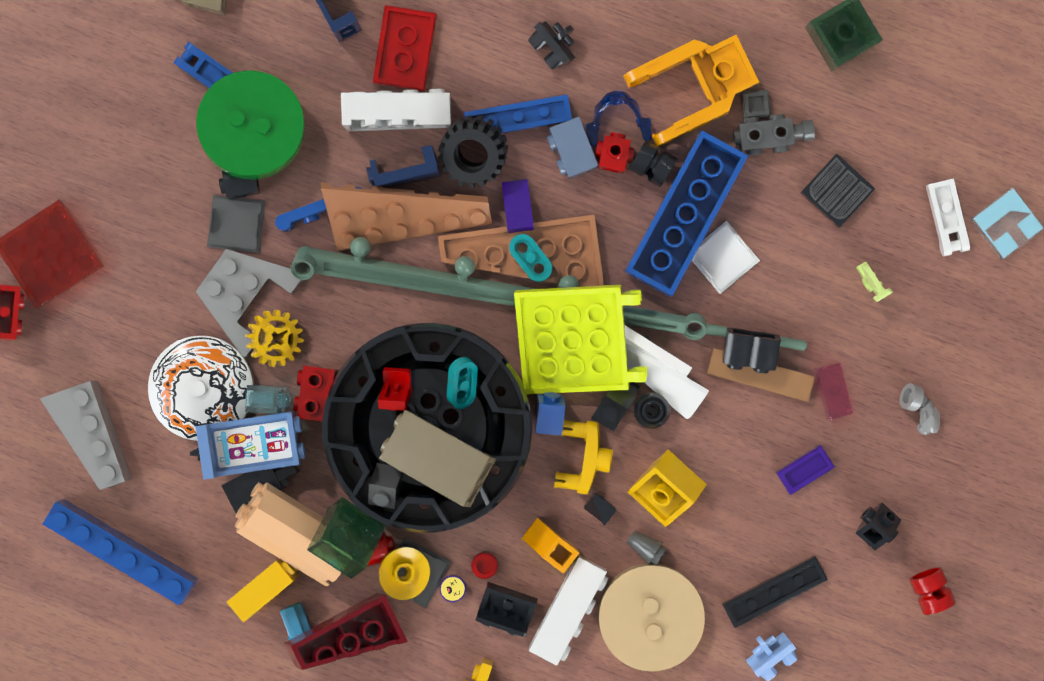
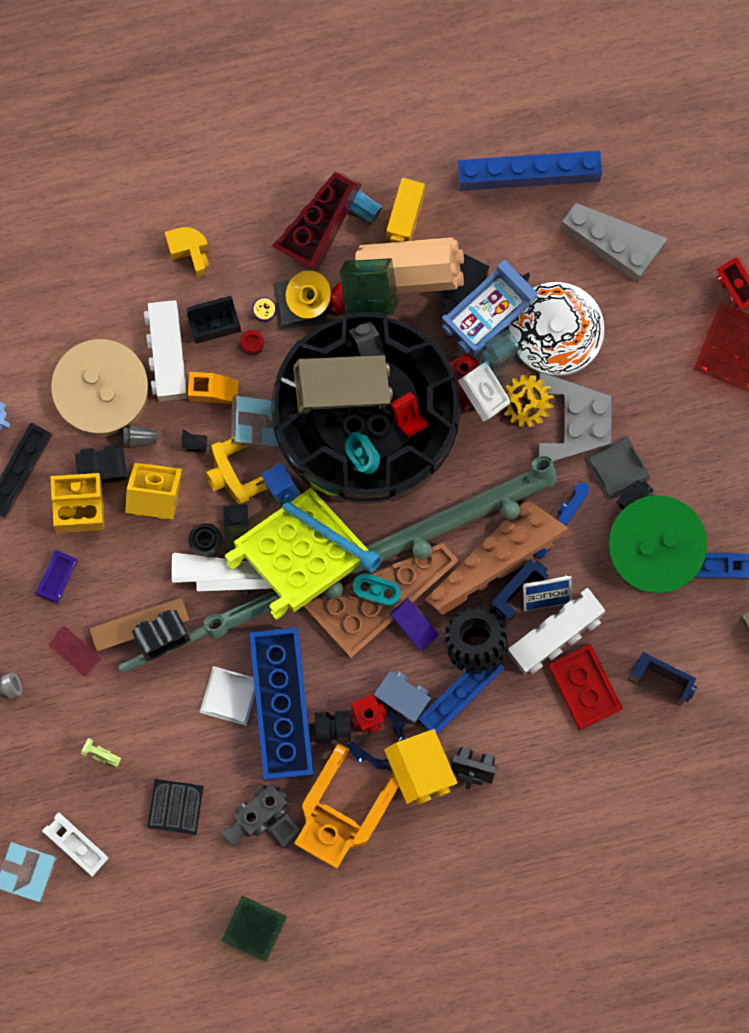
camera: 140 degrees right, 10 degrees down
(308, 369) = (484, 391): none -> white tile
(379, 150) = (547, 593): none -> piece
(521, 286) = (369, 560): none -> dark azure piece
(536, 489) = (252, 422): none -> tile
(600, 72) = (421, 767): none -> yellow brick
(698, 542) = (108, 463): none -> black brick
(745, 522) = (77, 503): none -> yellow piece

